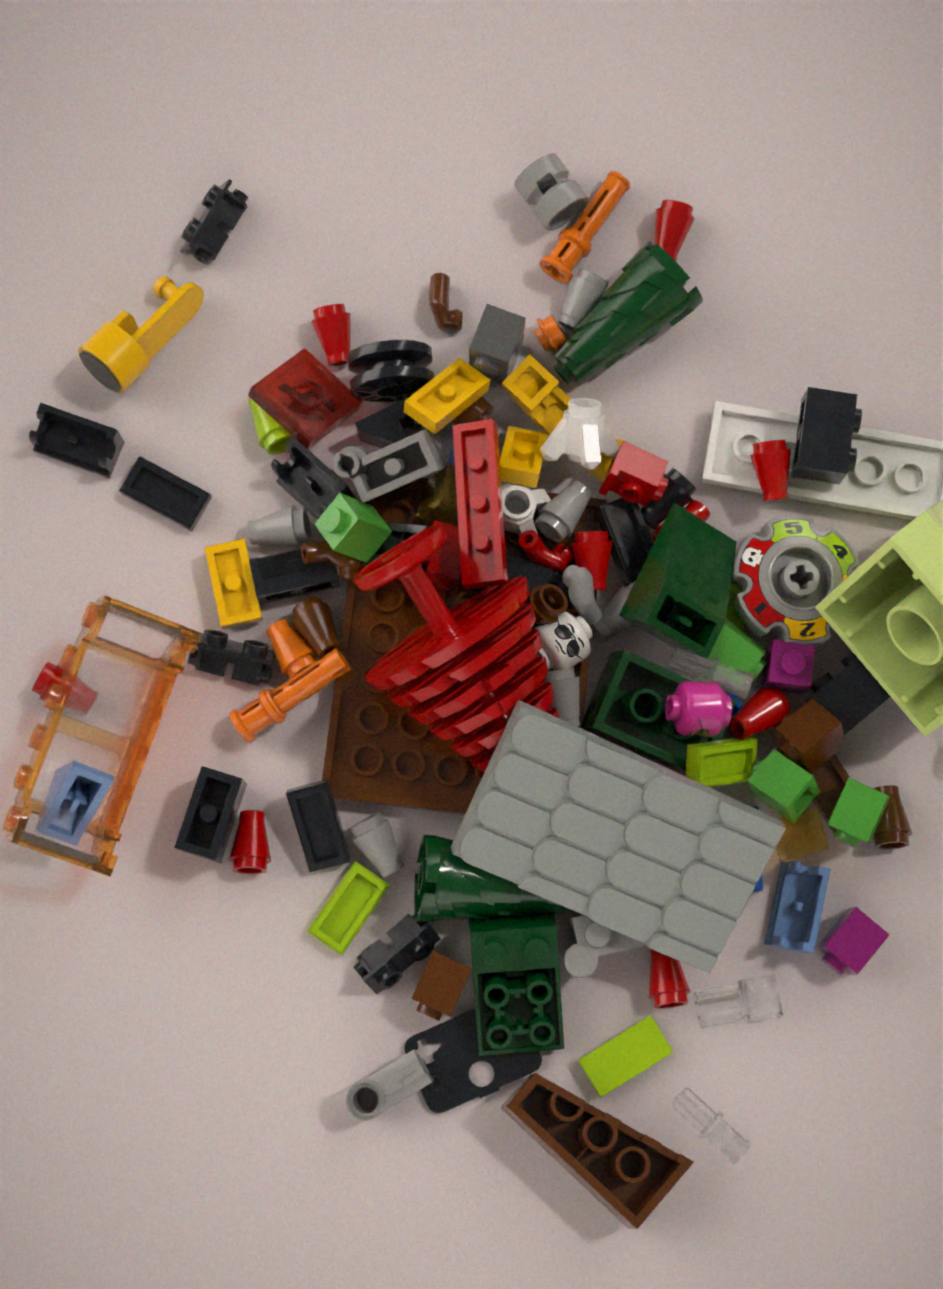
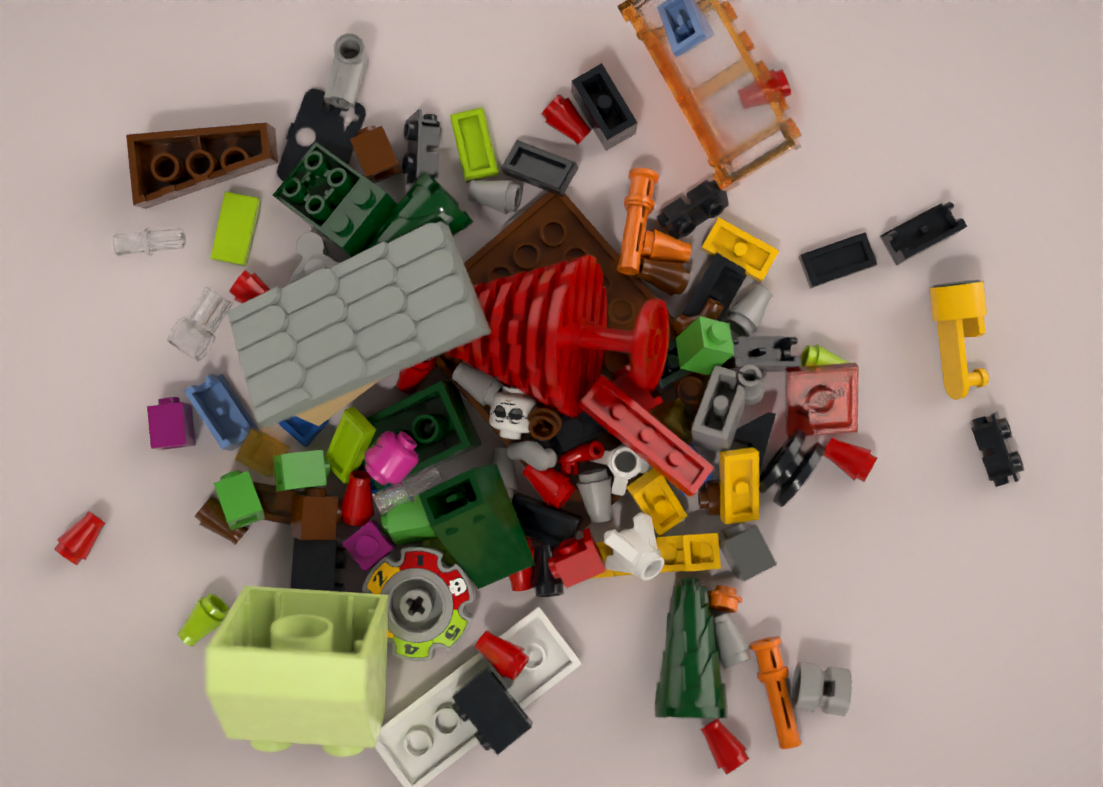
camera: 140 degrees right, 5 degrees up
(439, 304) = (810, 545): reddish brown arm -> none

